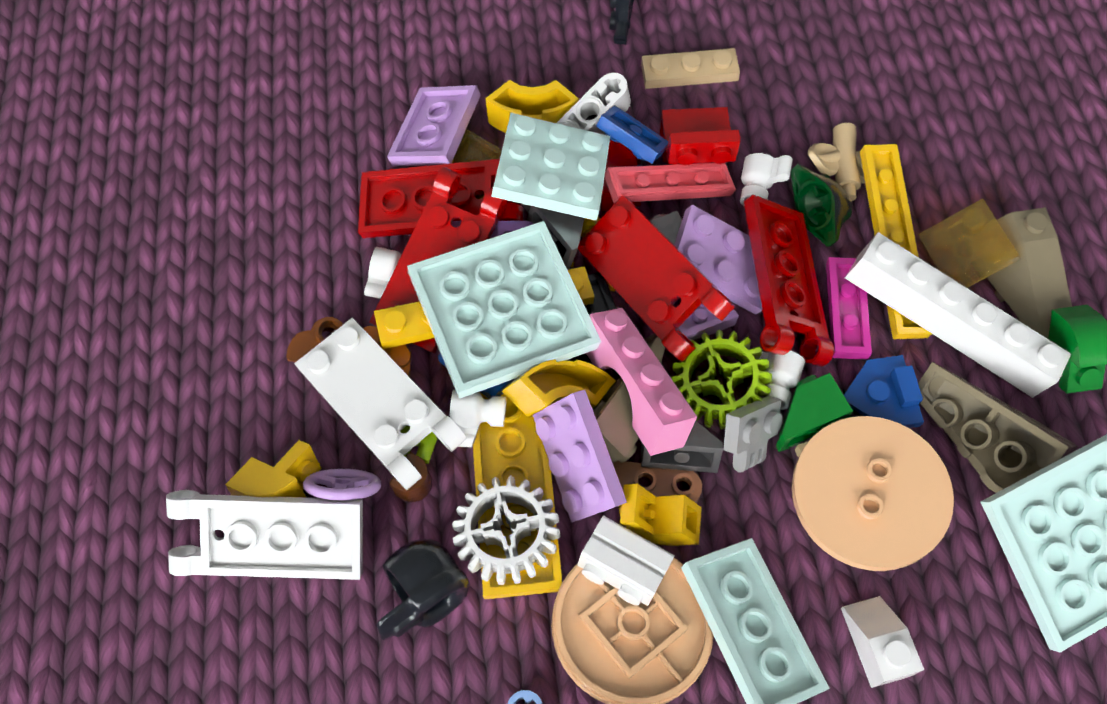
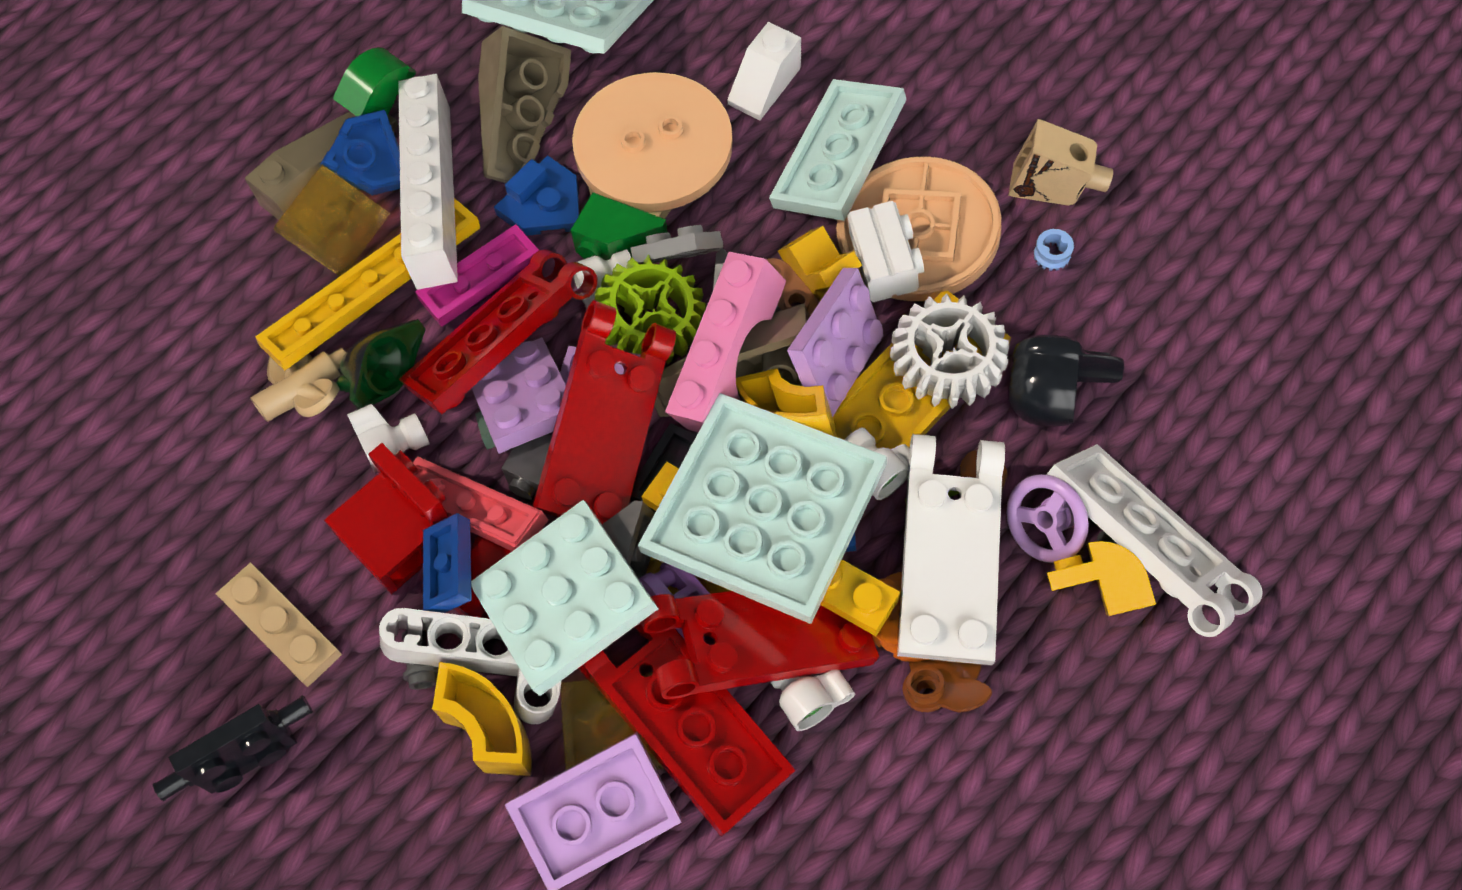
camera: 130 degrees left, 0 degrees up
(1019, 295) = (366, 154): none -> blue plate

